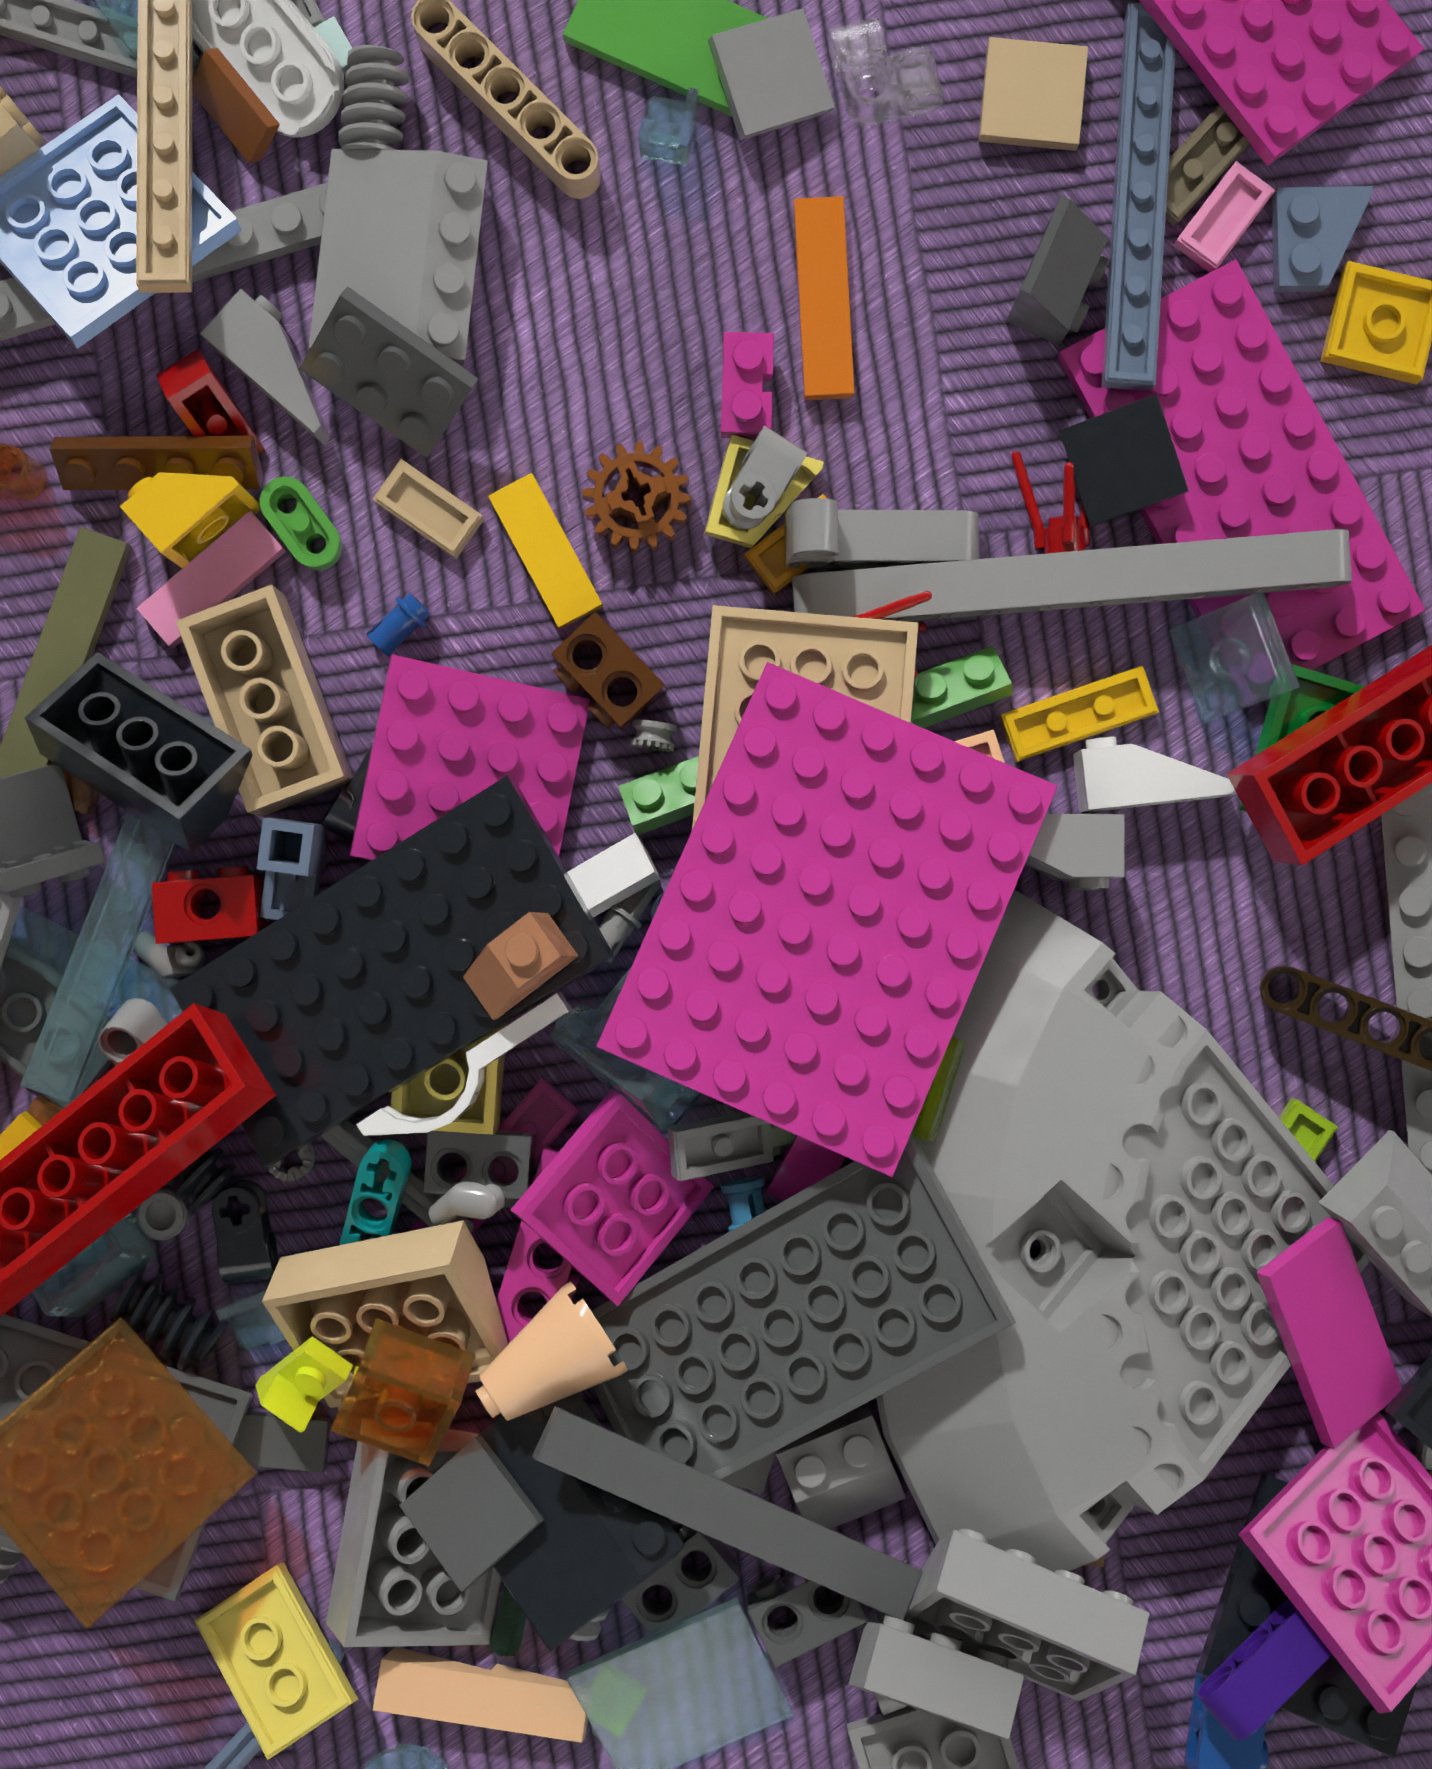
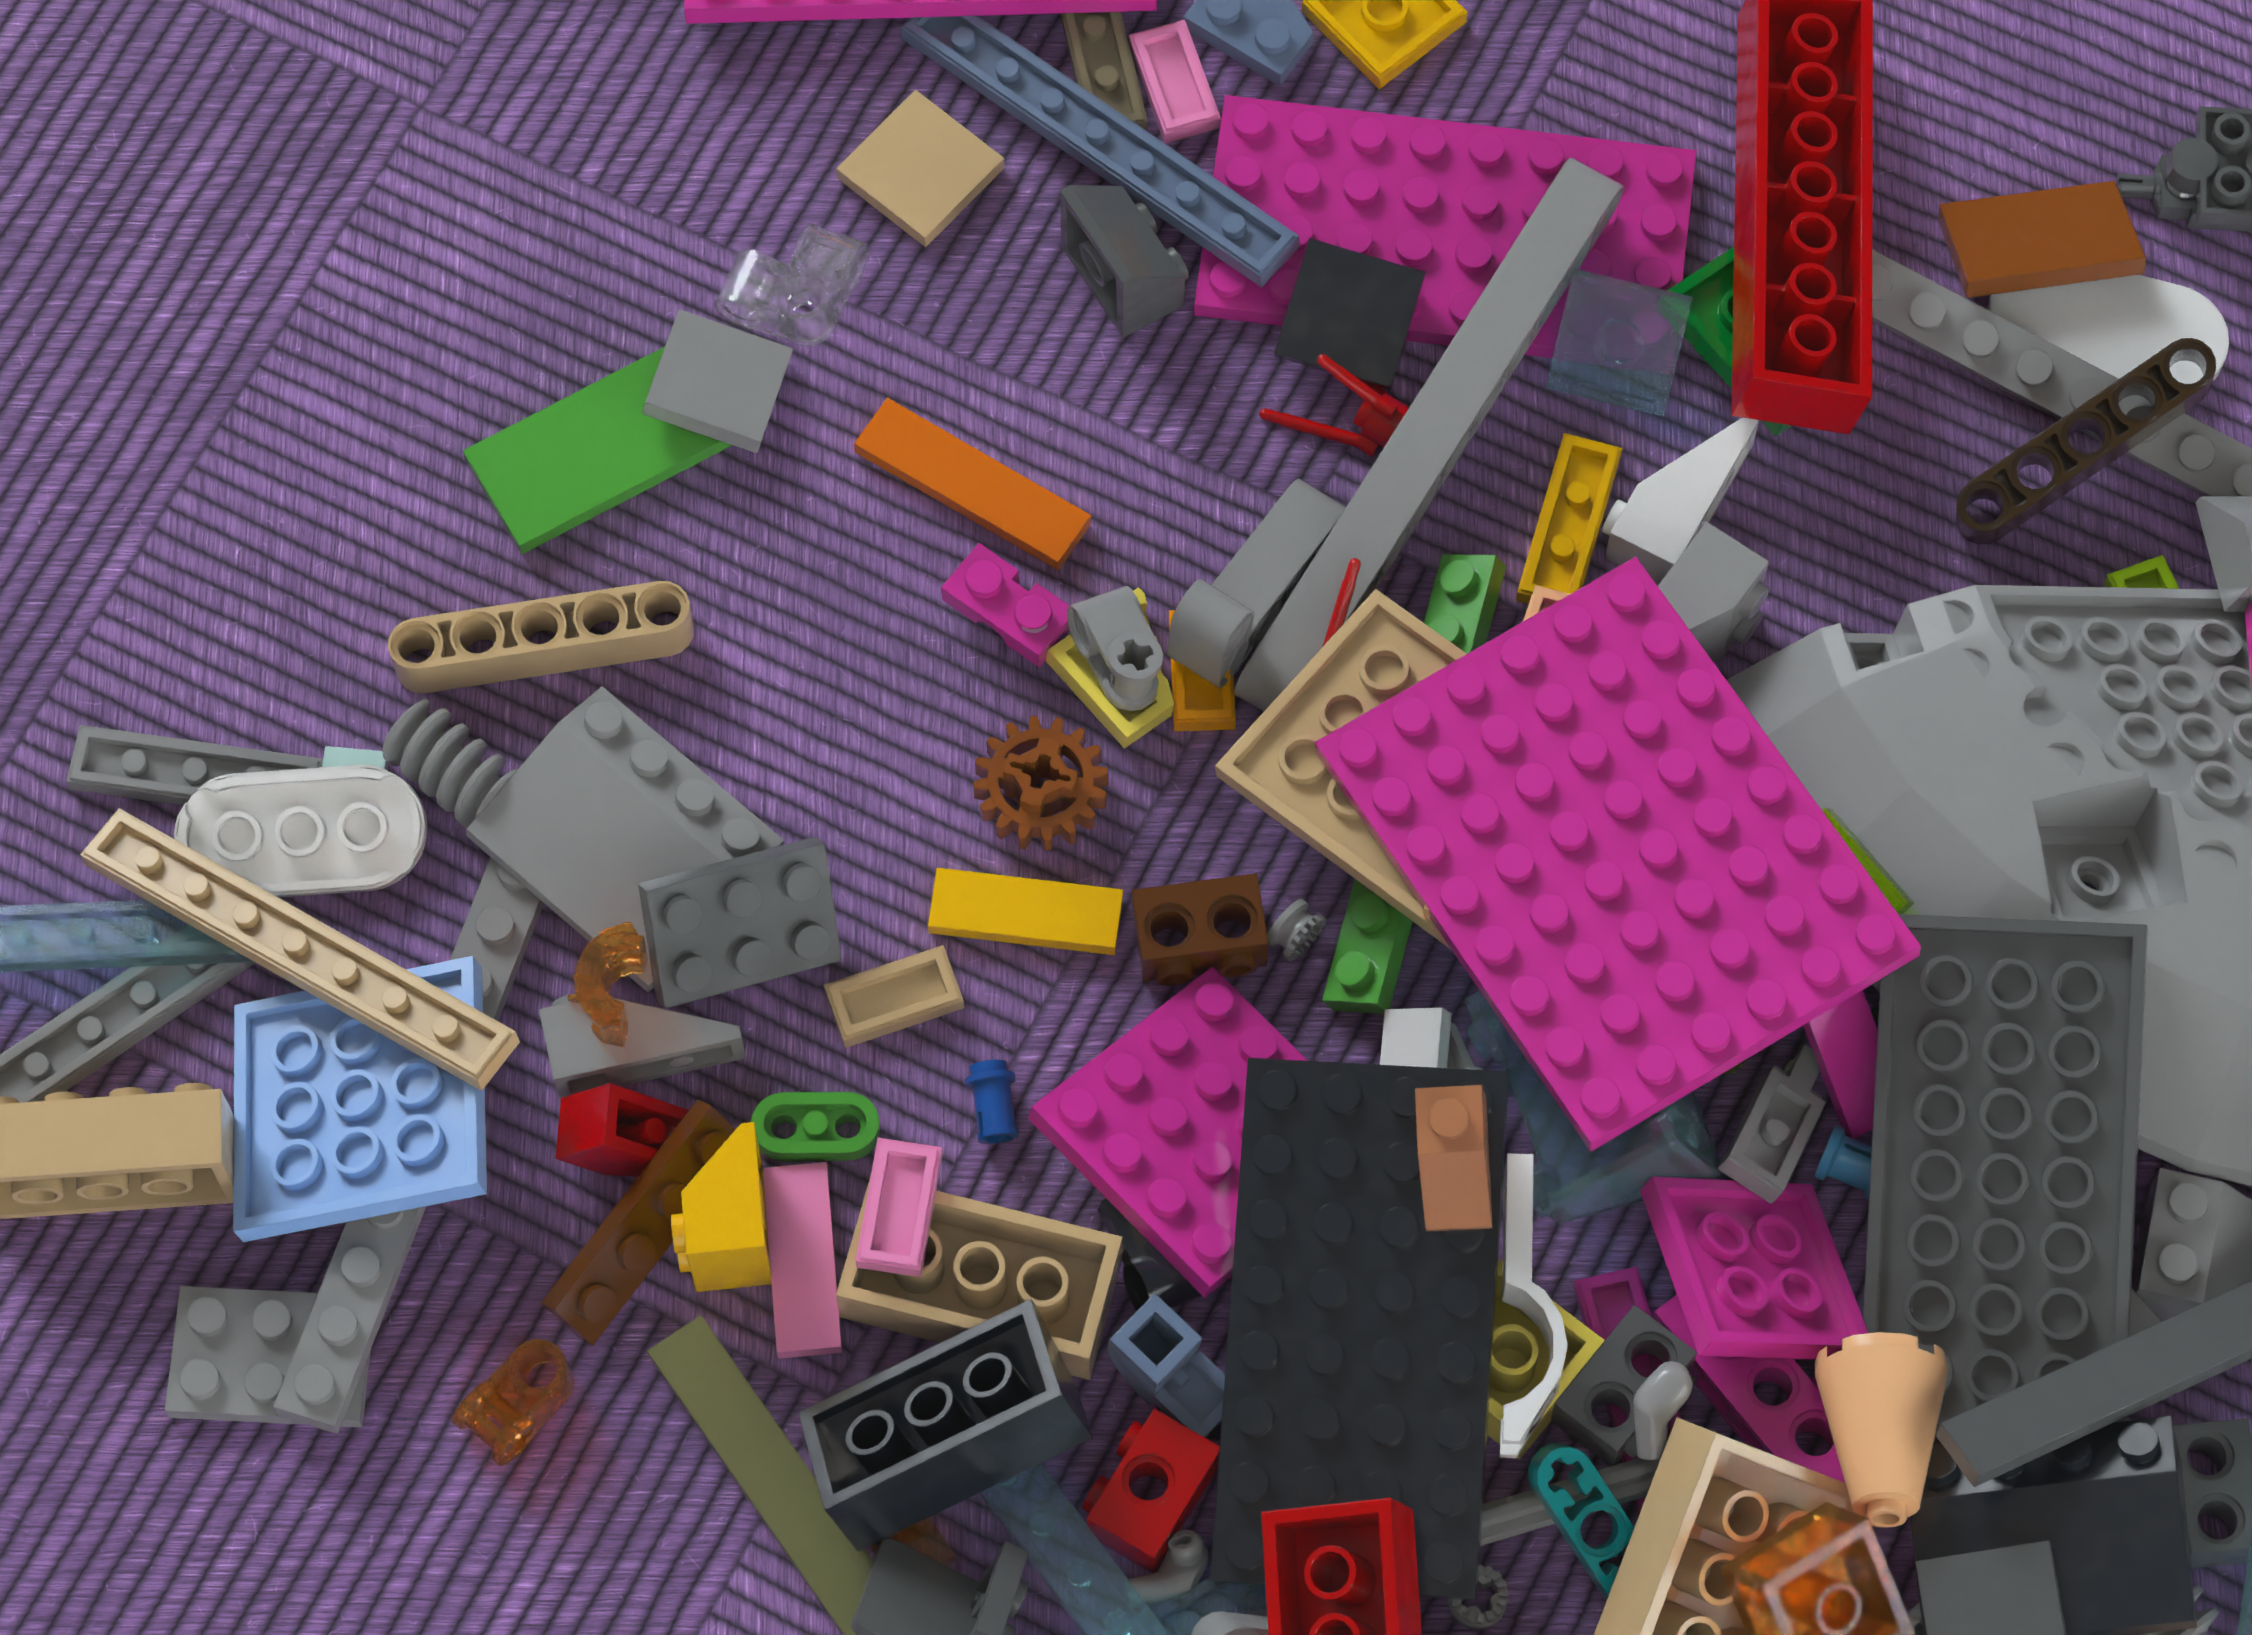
camera: 55 degrees left, 20 degrees down
(233, 105) = (346, 898): dark orange tile -> none
(257, 619) = (899, 1207): none -> bright pink tile
(267, 310) = (603, 961): none -> clear orange piece
(669, 129) = (693, 509): clear light blue panel -> none

